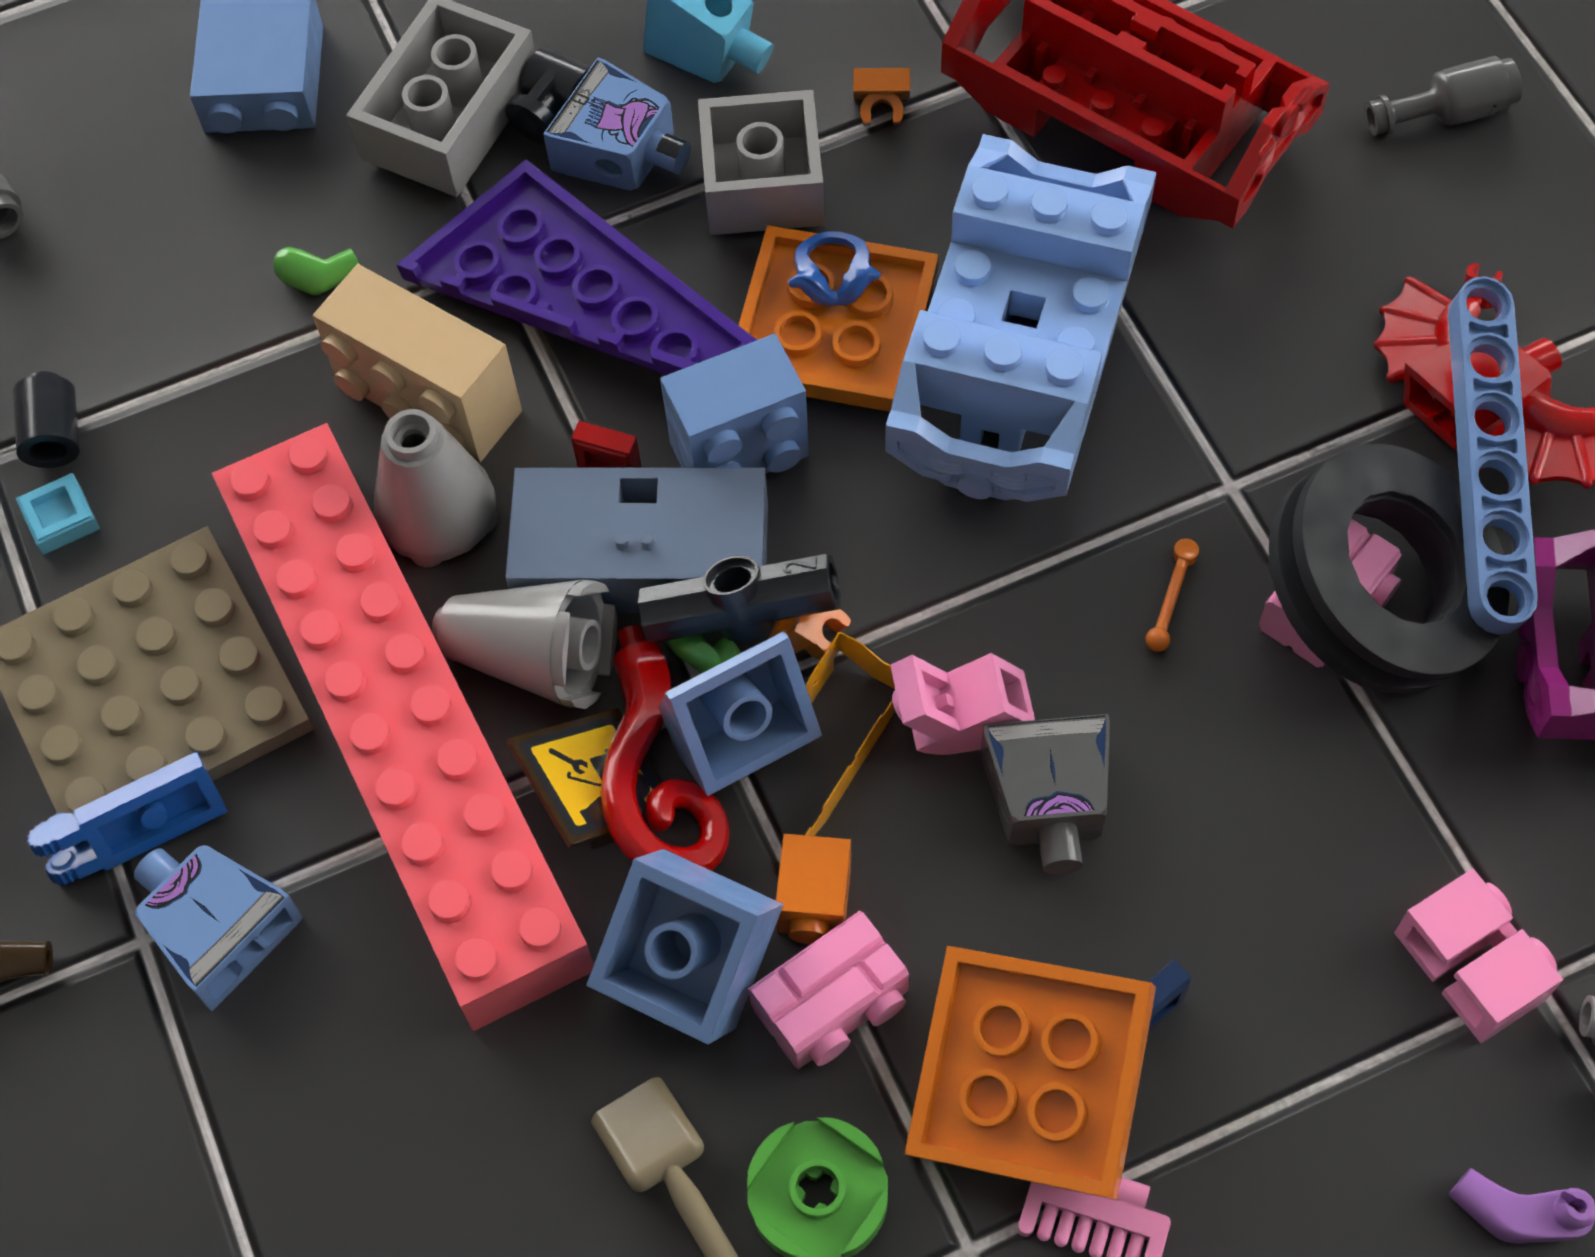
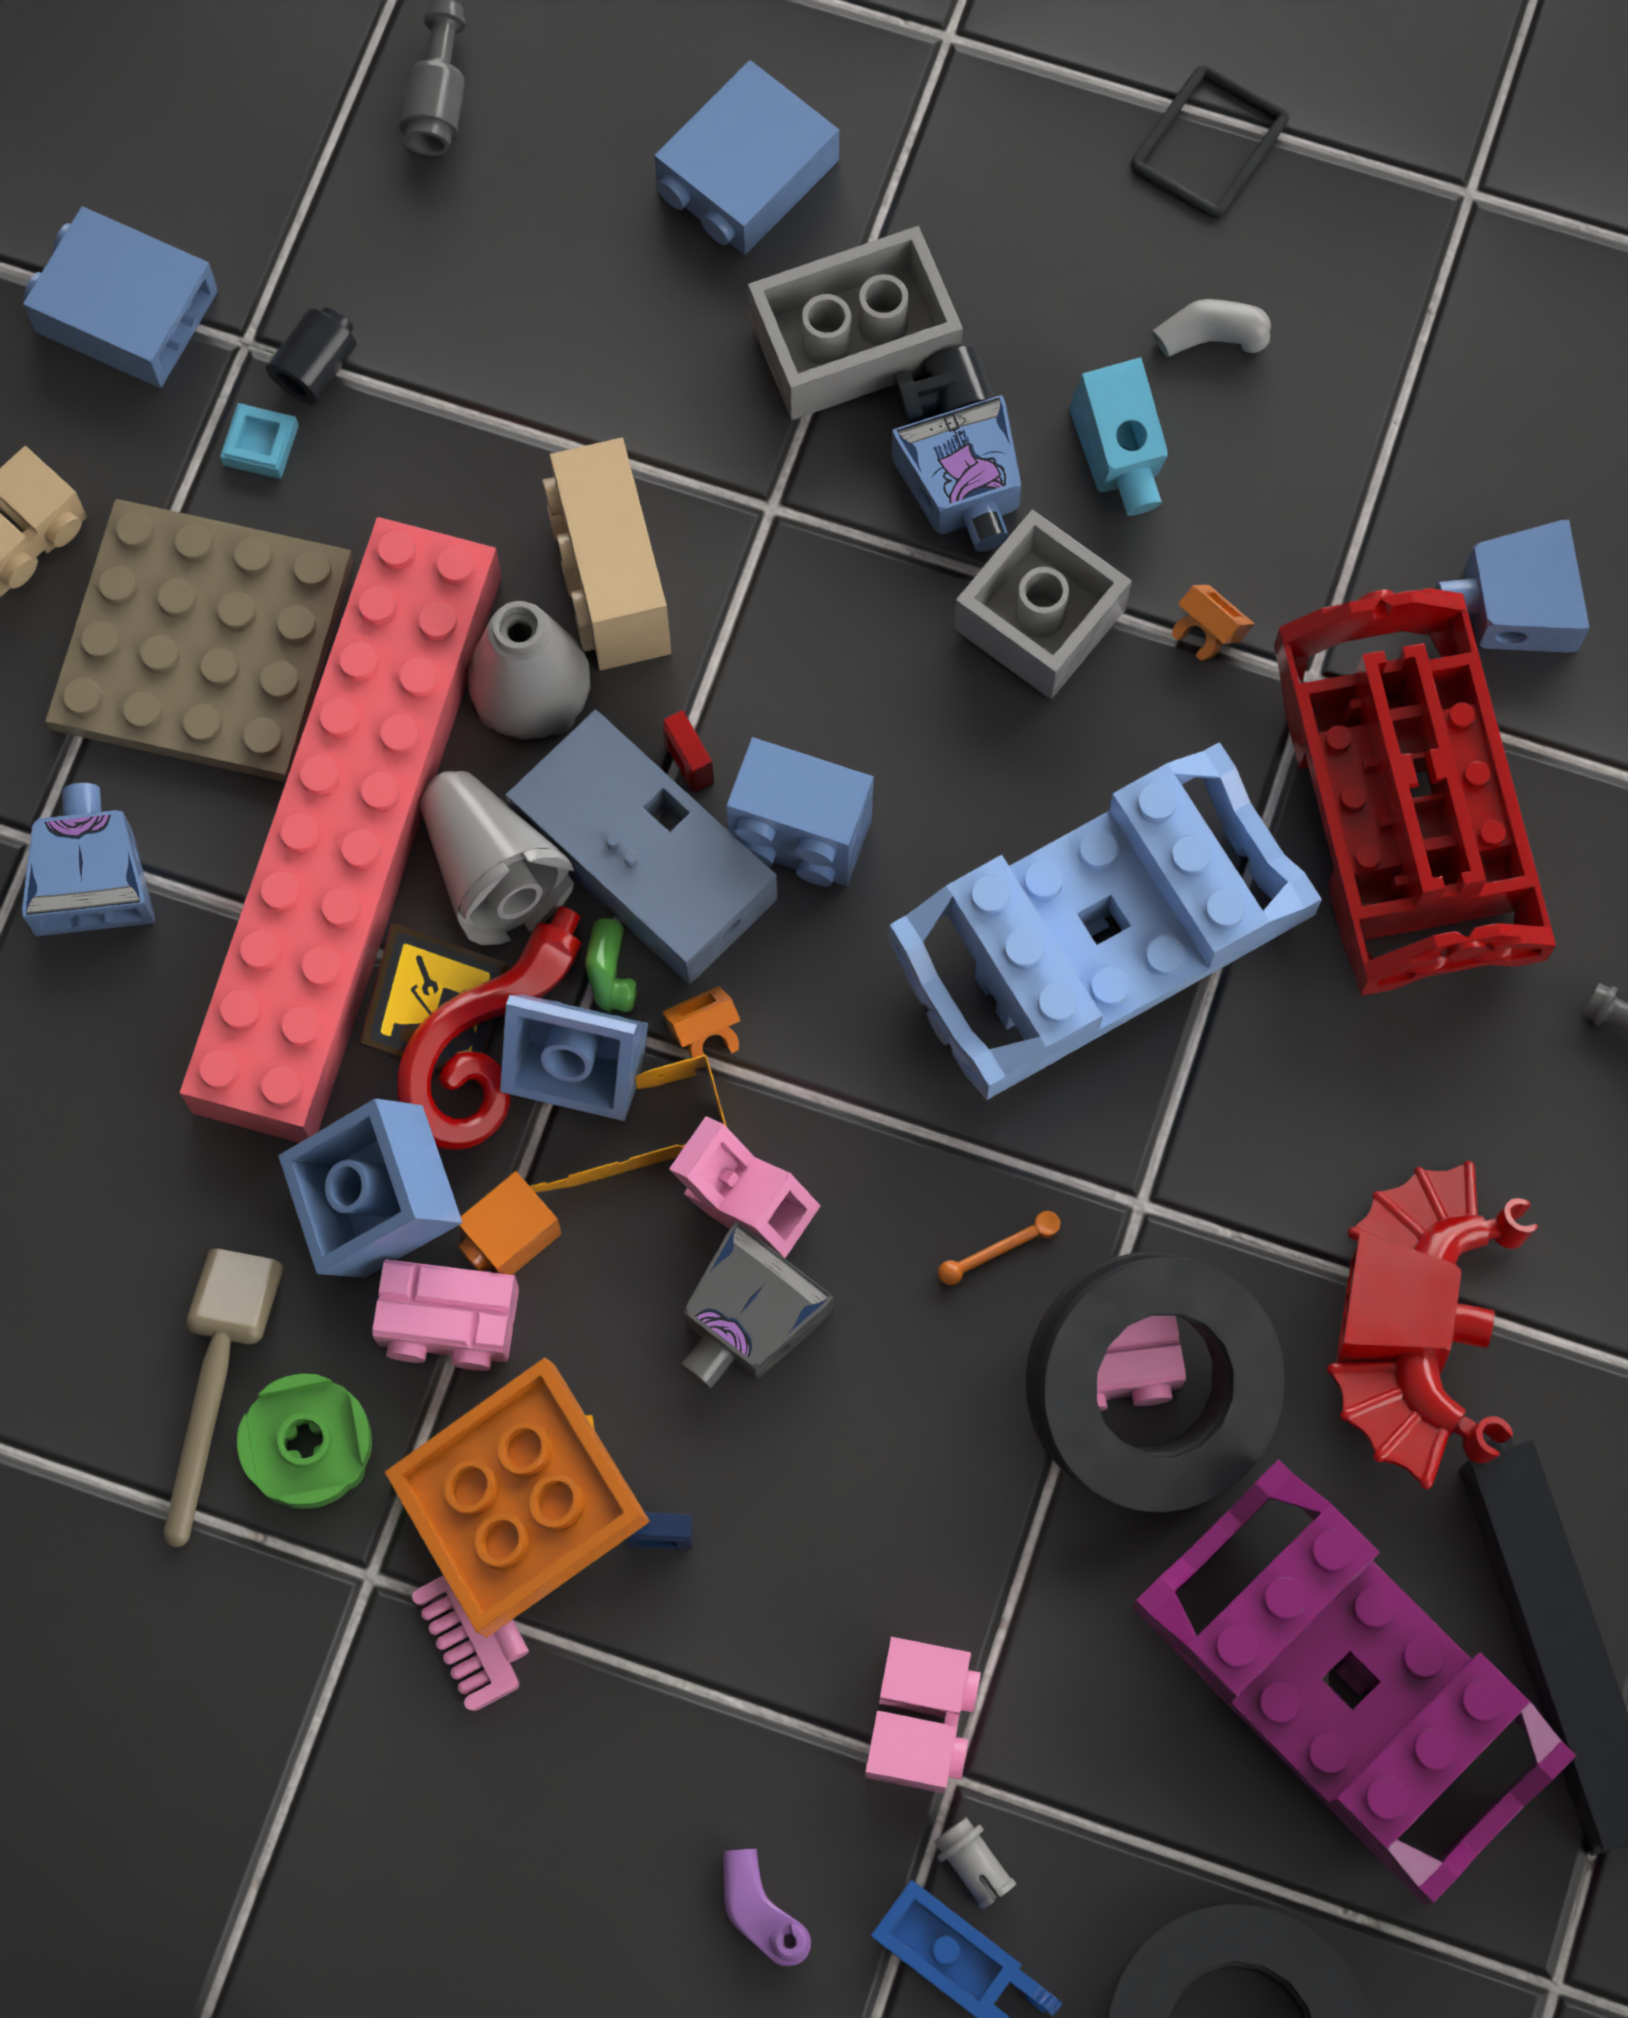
camera: 40 degrees right, 10 degrees up
(128, 821) = (95, 743): blue hinge -> none
(310, 272) = (618, 394): bright green arm -> none
(565, 270) = (800, 559): dark purple wing -> none
(739, 598) = (652, 965): black piece -> none
(815, 284) = (1009, 775): blue piece -> none
(840, 350) = (973, 782): orange plate -> none
(1502, 452) = (1330, 1372): medium blue beam -> none

